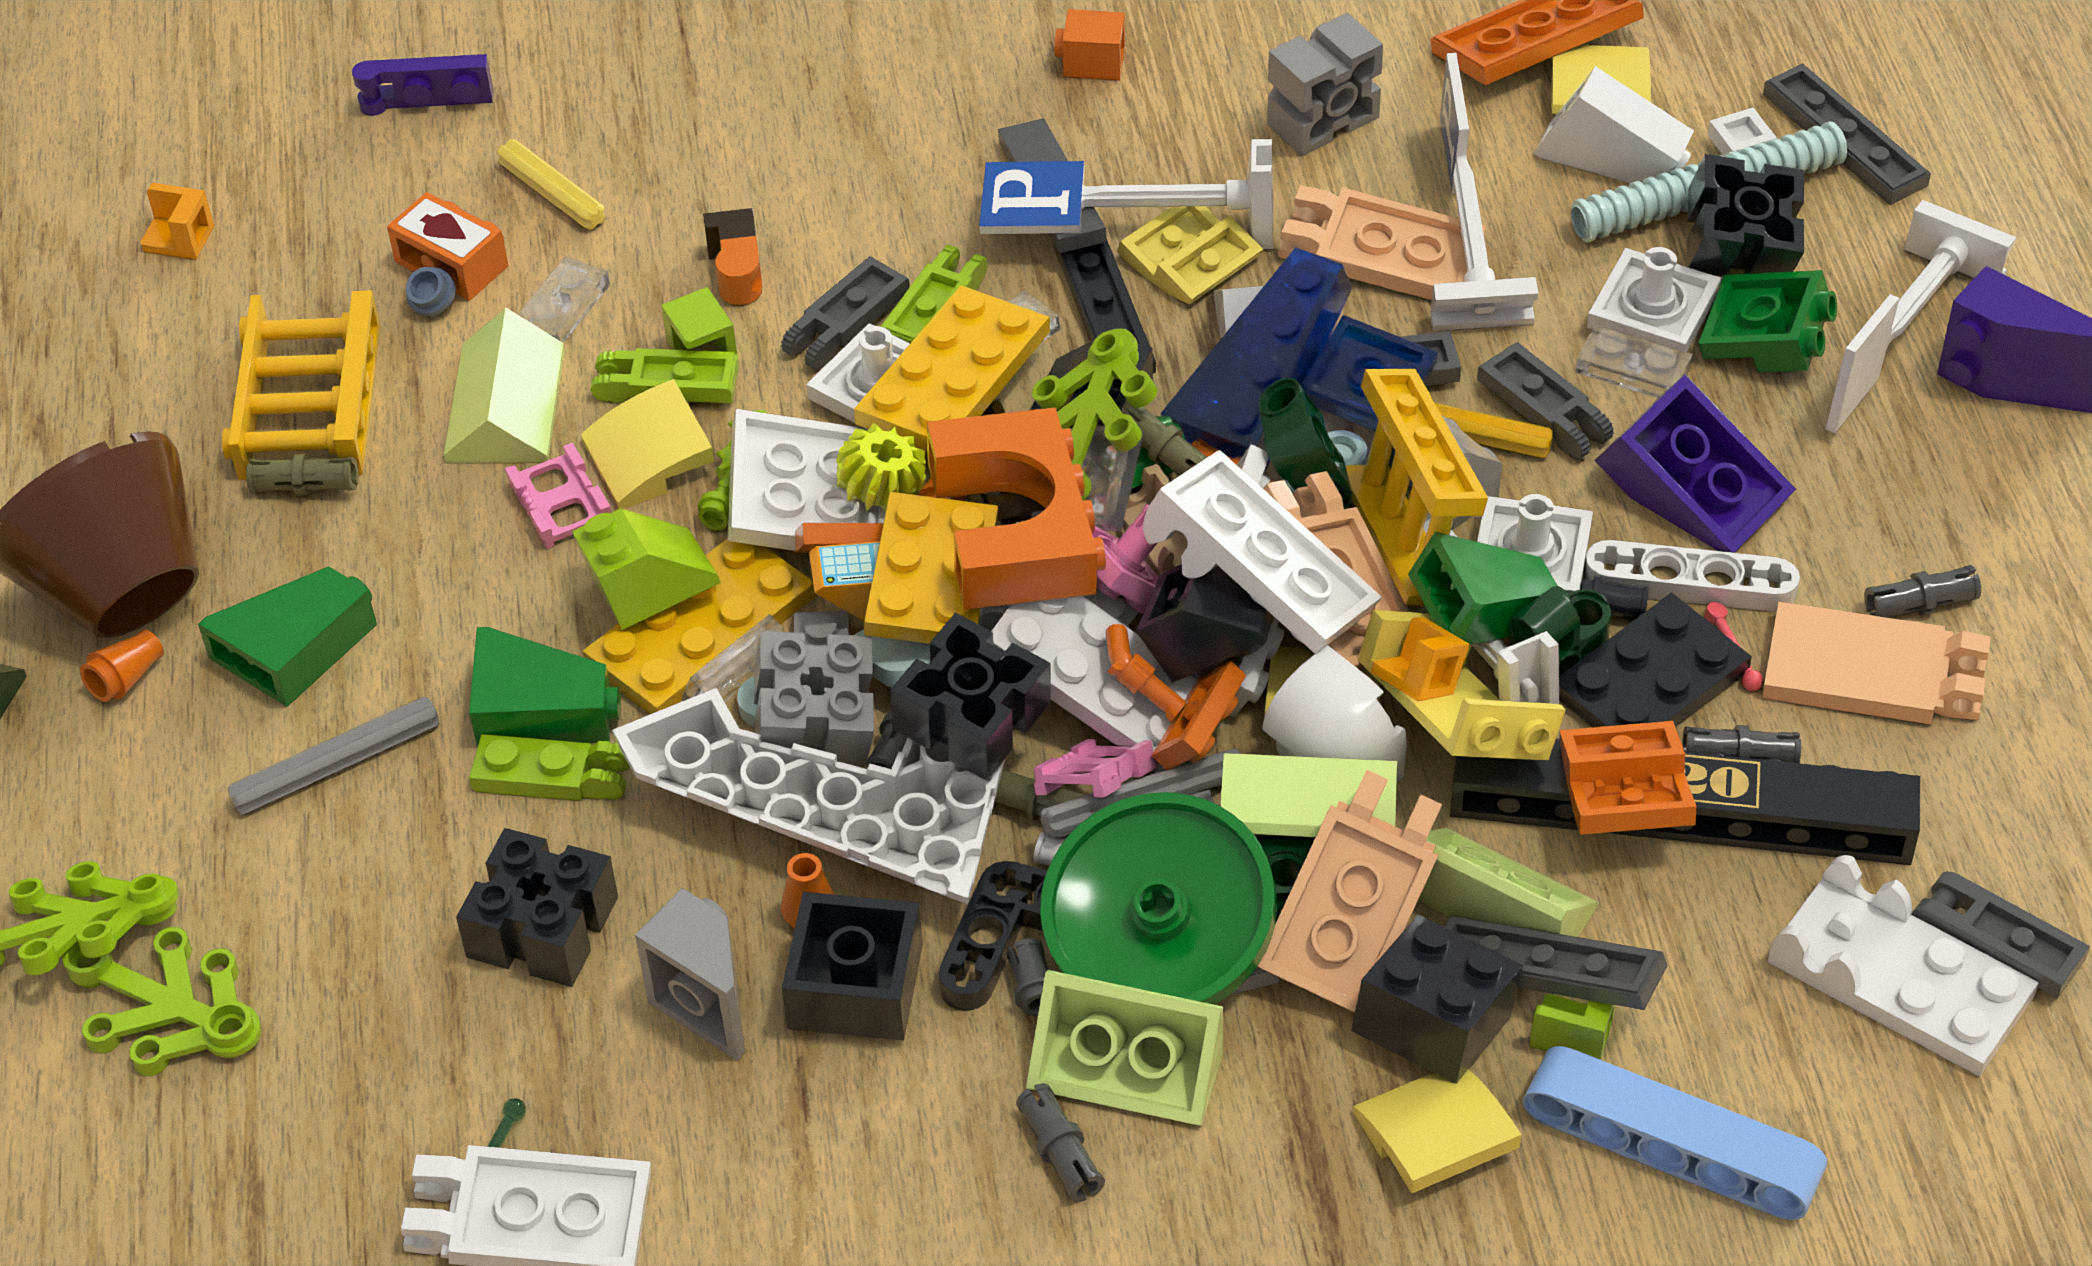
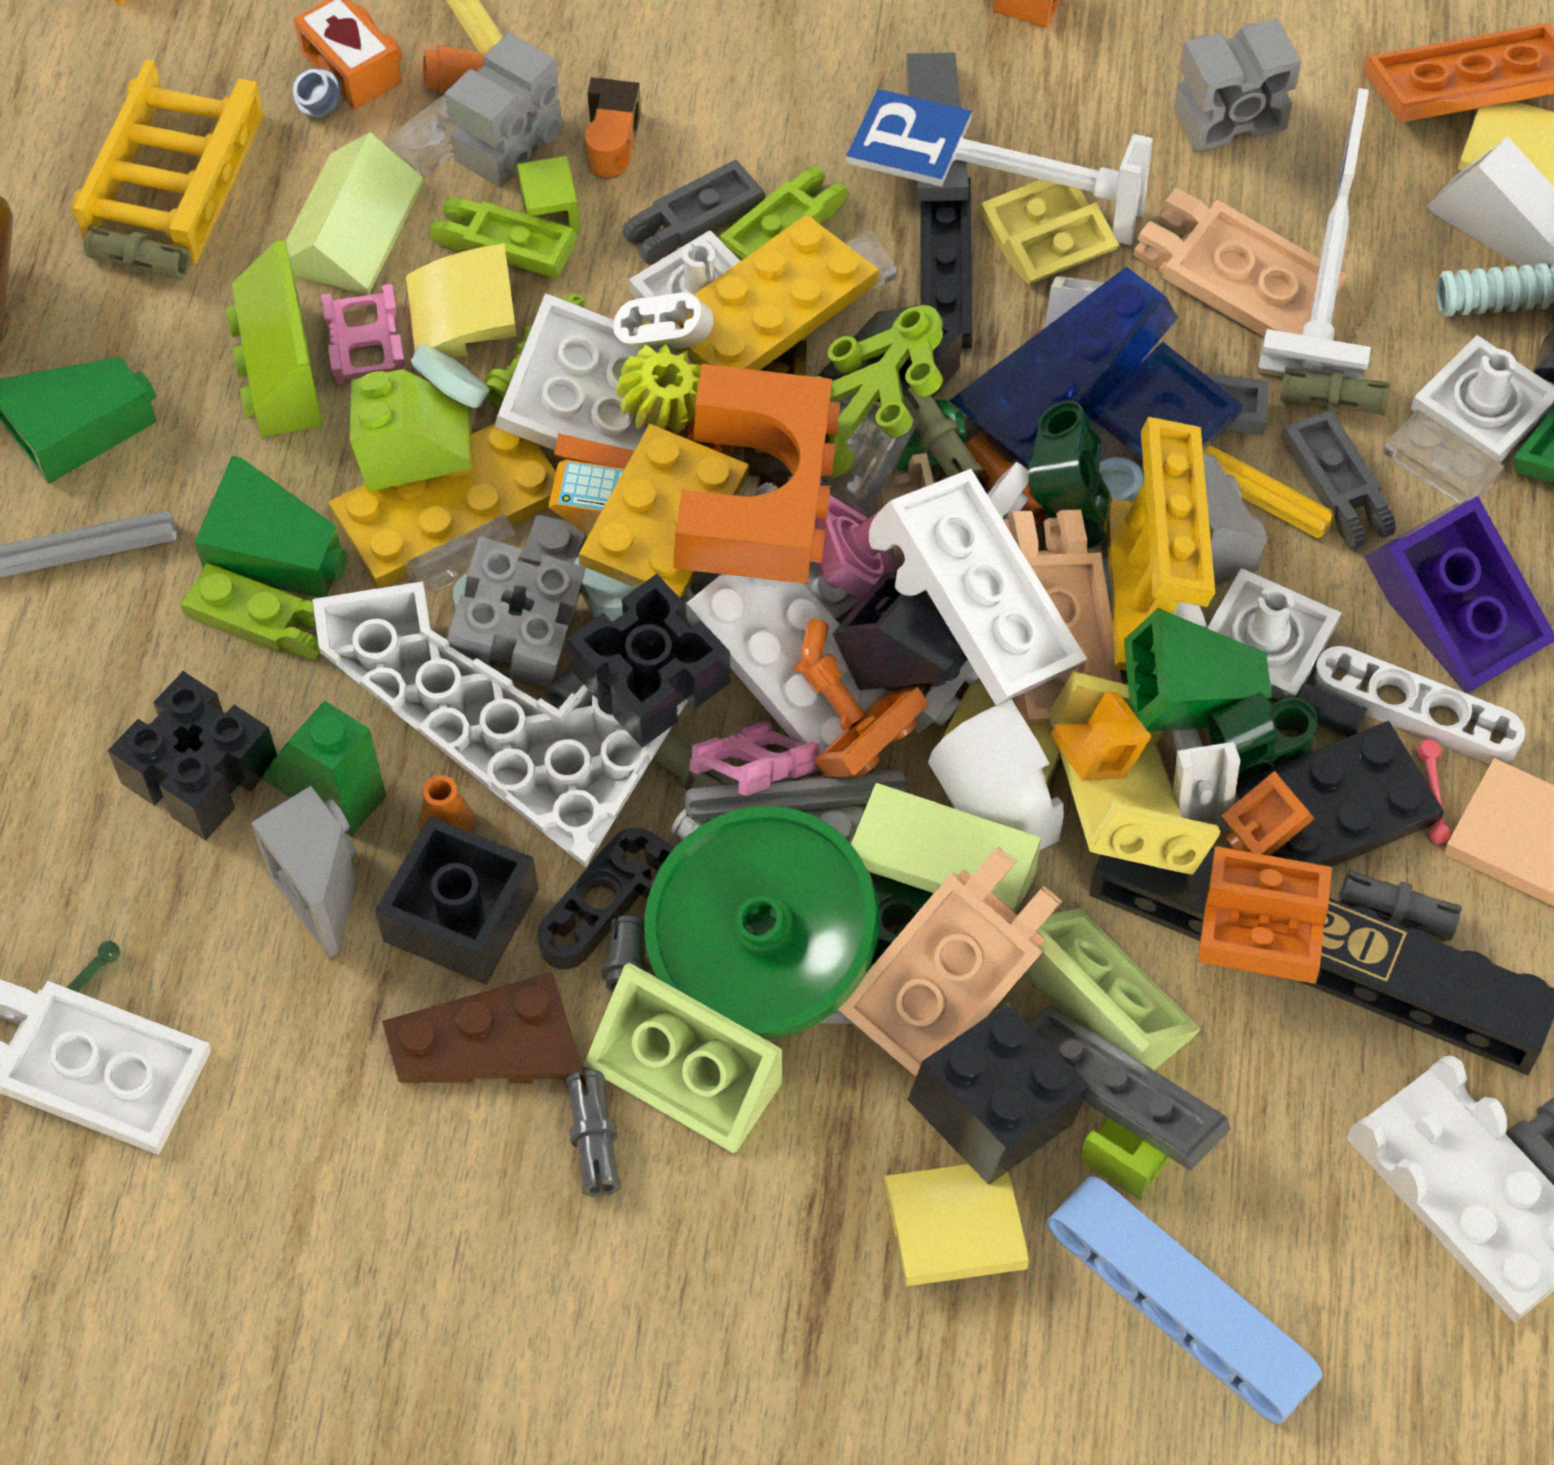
camera: 15 degrees right, 10 degrees up
(480, 520) = (273, 346): none -> lime slope
(556, 238) = (447, 65): none -> orange cone
(631, 260) = (504, 109): none -> light grey brick
(663, 509) = (449, 376): none -> light aqua tile
(685, 853) = (334, 759): none -> green slope
(863, 405) = (662, 313): none -> white beam
(926, 1082) = (493, 1034): none -> reddish brown wing
(1513, 327) = (1335, 391): none -> olive pin
(1596, 695) = (1266, 817): none -> orange bracket

